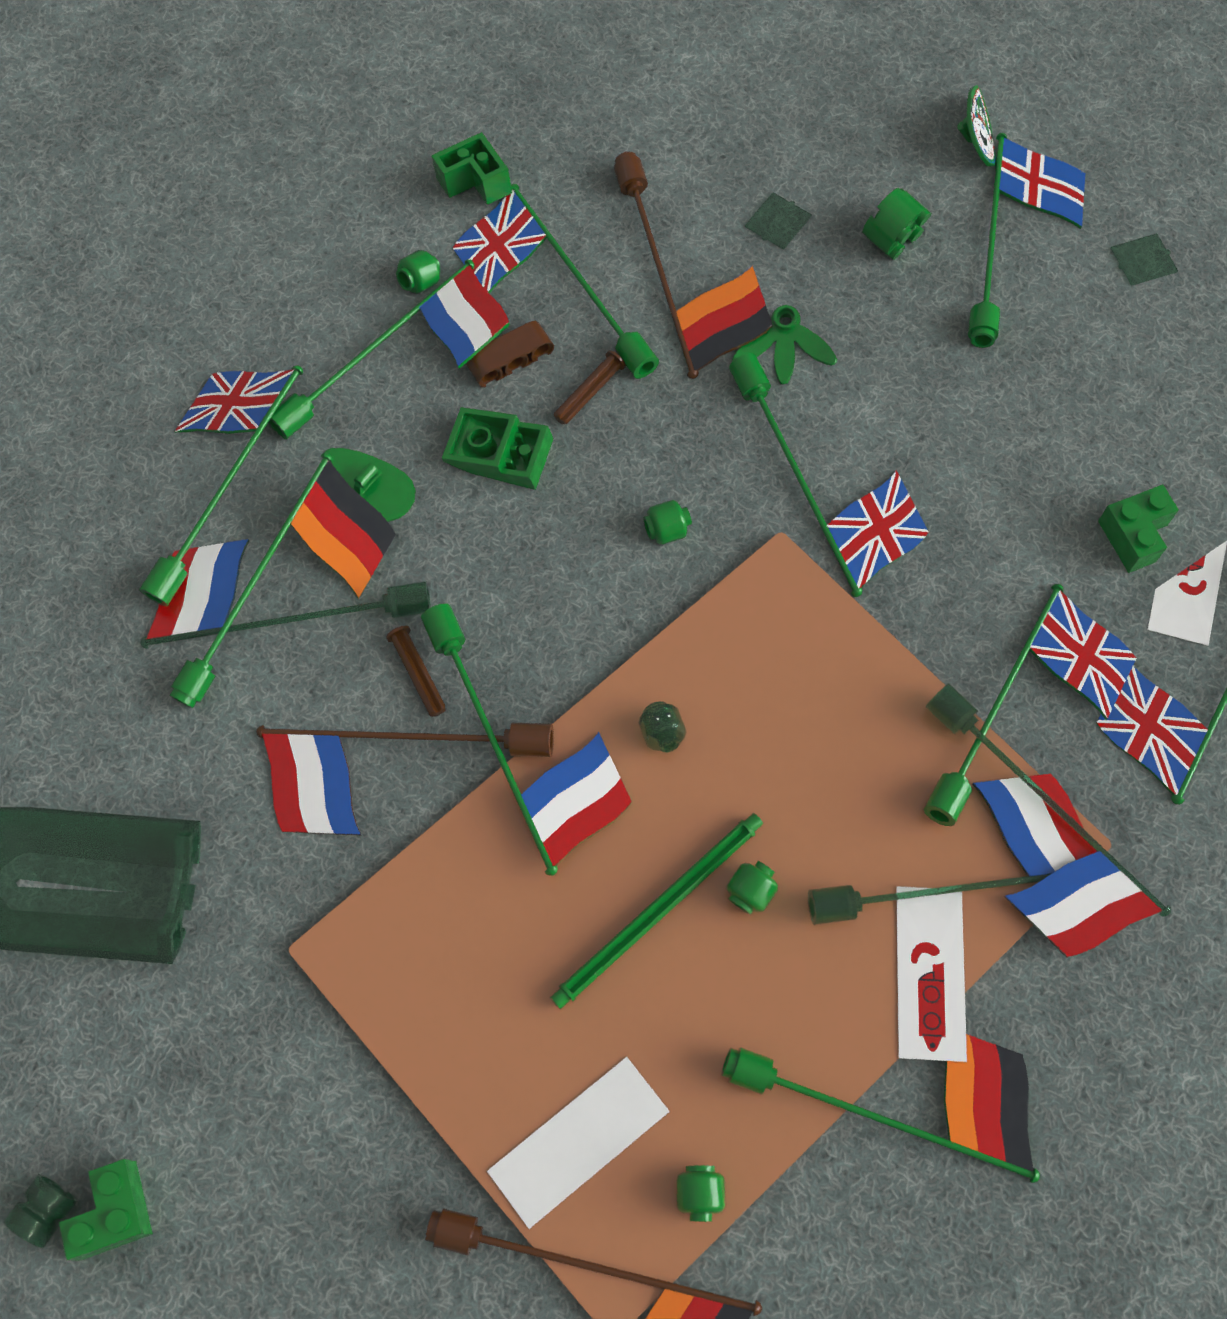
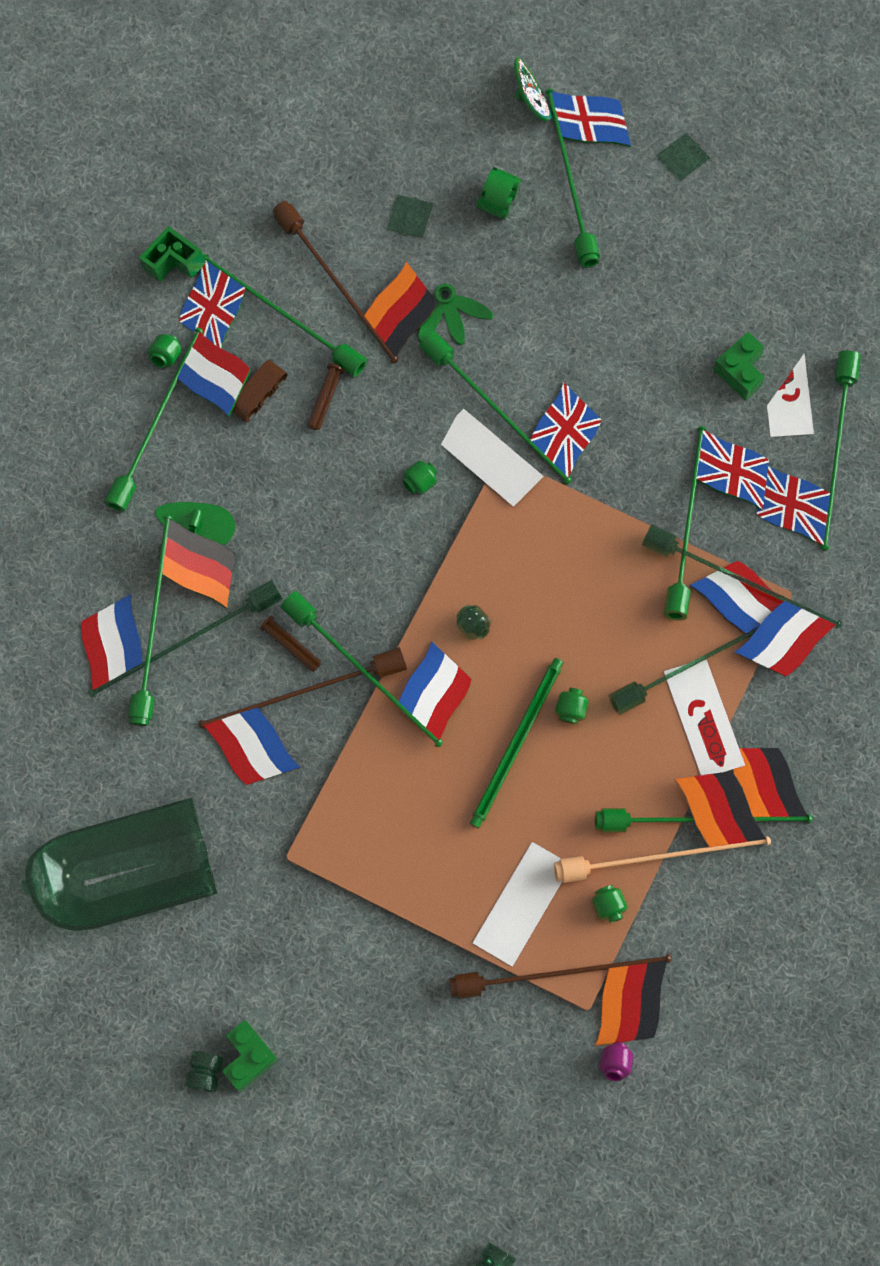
camera: 20 degrees left, 5 degrees up
(228, 405) = (73, 501): flag -> none
(498, 447) = (279, 464): green slope -> none
(767, 531) = (490, 458): none -> white sticker
(905, 1119) = (718, 812): none -> flag

